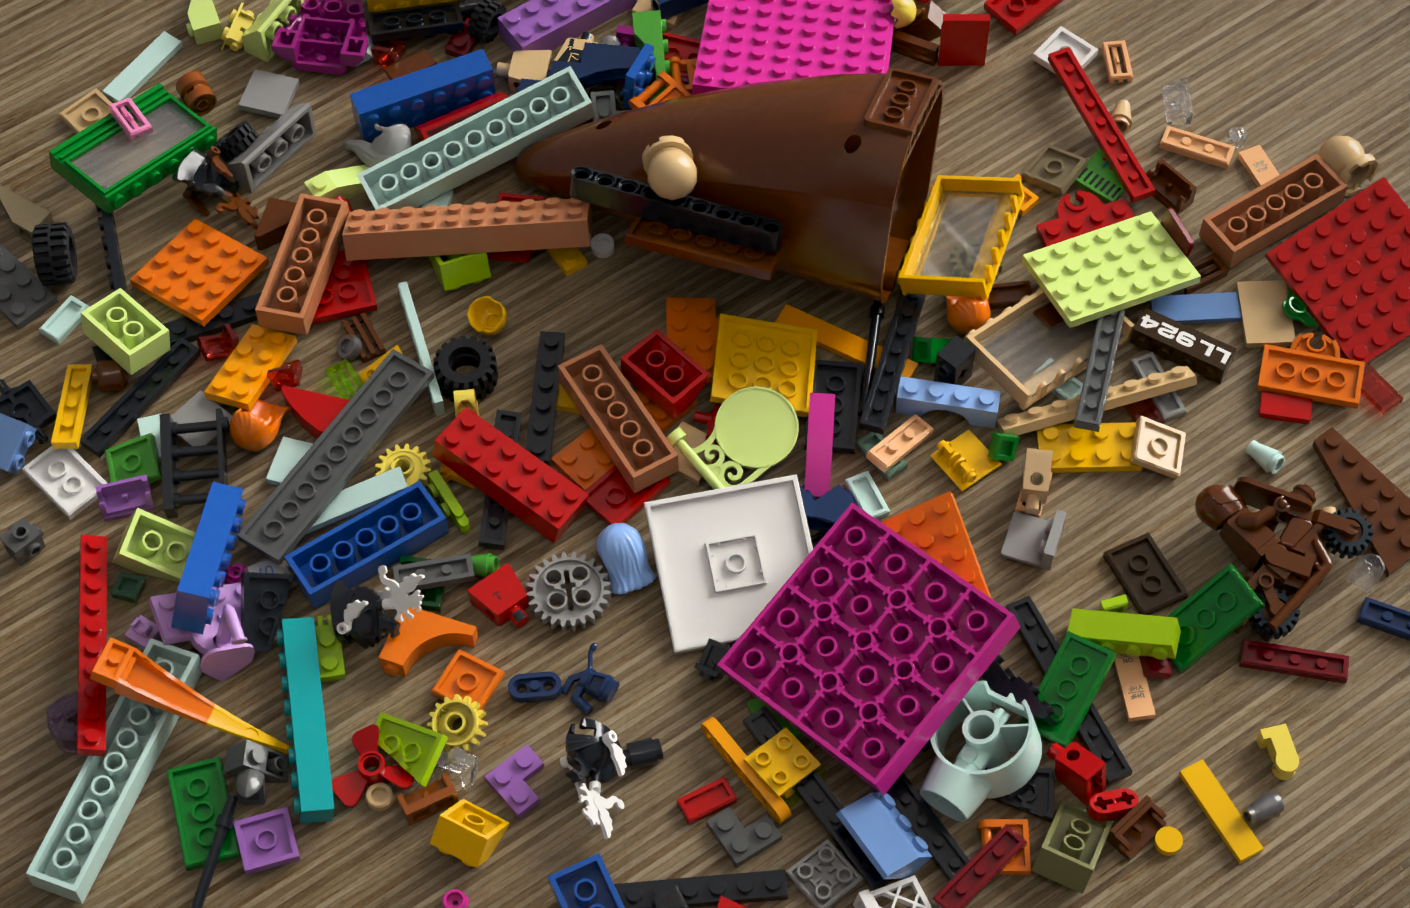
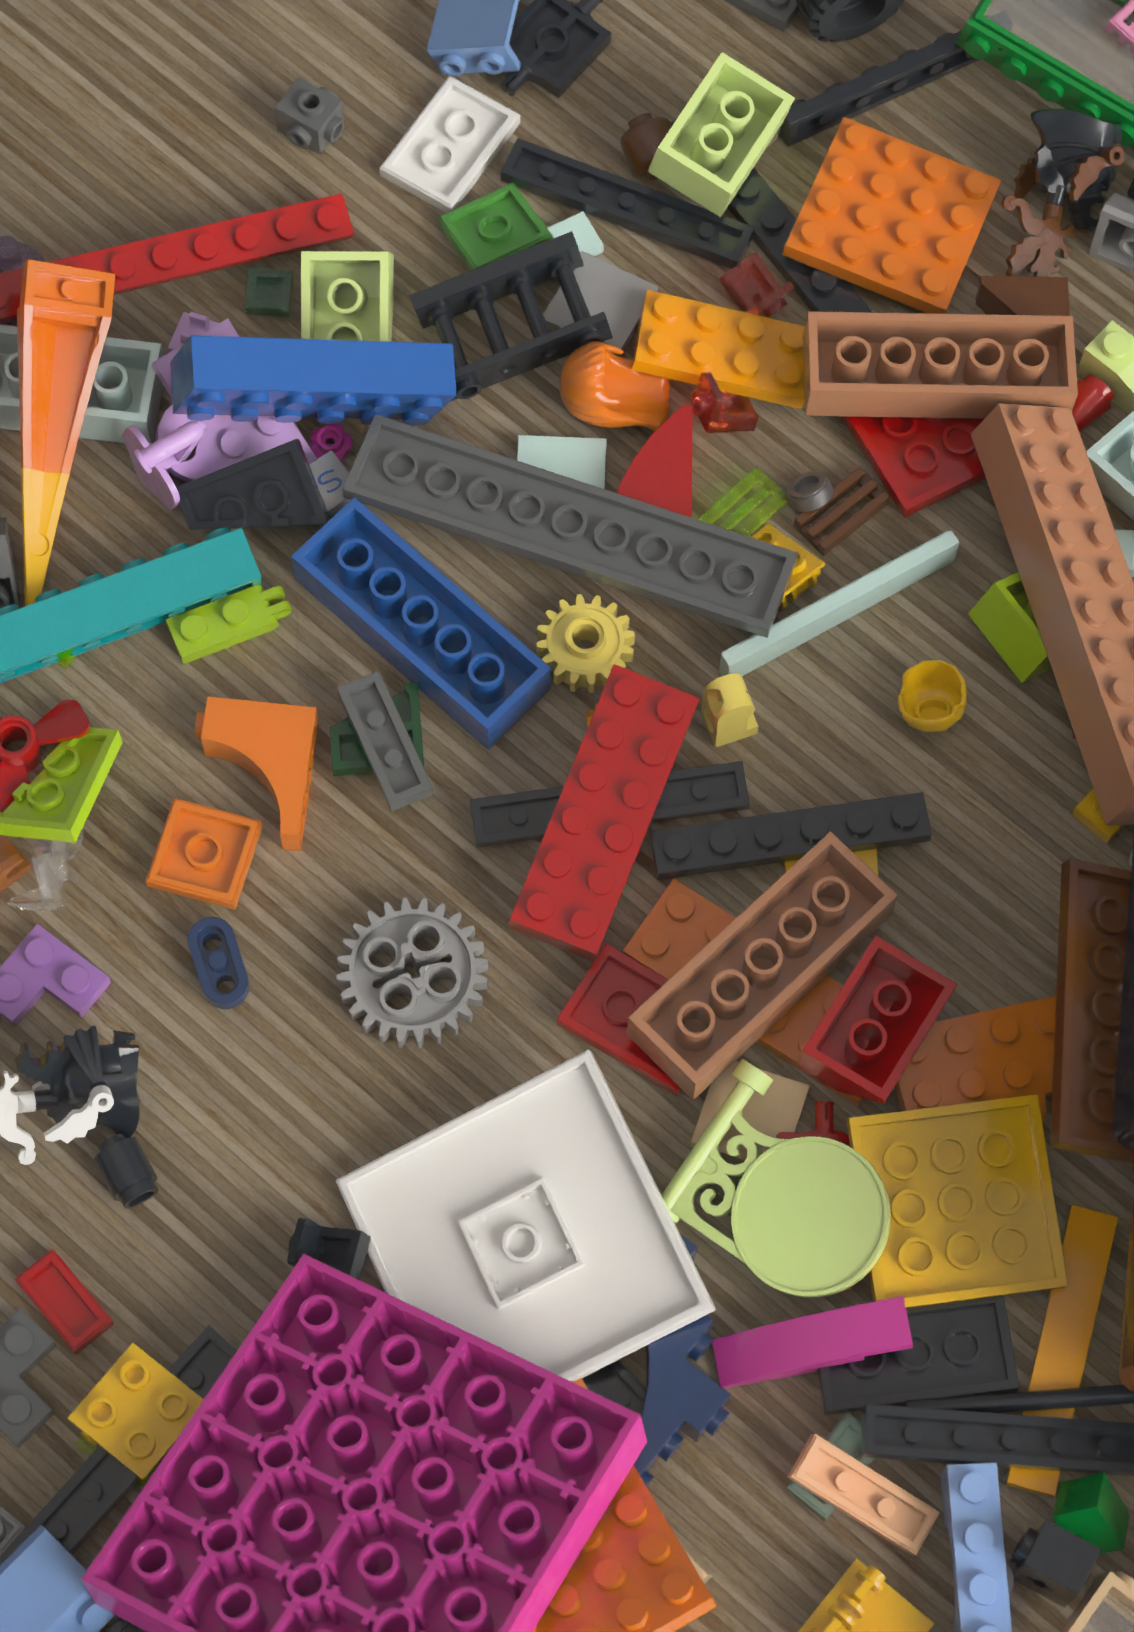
camera: 75 degrees right, 10 degrees up
(63, 320) = (754, 50): light aqua tile -> none
(72, 406) = (573, 109): yellow plate -> none
(124, 497) = (428, 238): medium lavender hinge -> none
(362, 497) = (509, 592): light aqua tile -> none
(362, 609) = (272, 651): helmet -> none
(449, 504) = (537, 735): lime hinge -> none
(465, 353) = (817, 656): black tyre -> none
(471, 722) = (118, 855): light yellow gear -> none
(484, 564) = (433, 817): bright green cone -> none
(501, 597) = (375, 865): red torso -> none
(597, 684) = (244, 1064): dark blue piece -> none
(624, 558) = (496, 1048): light blue piece -> none
(735, 758) = (145, 1332): light orange beam -> none
(867, 495) = (737, 1458): light aqua tile -> none

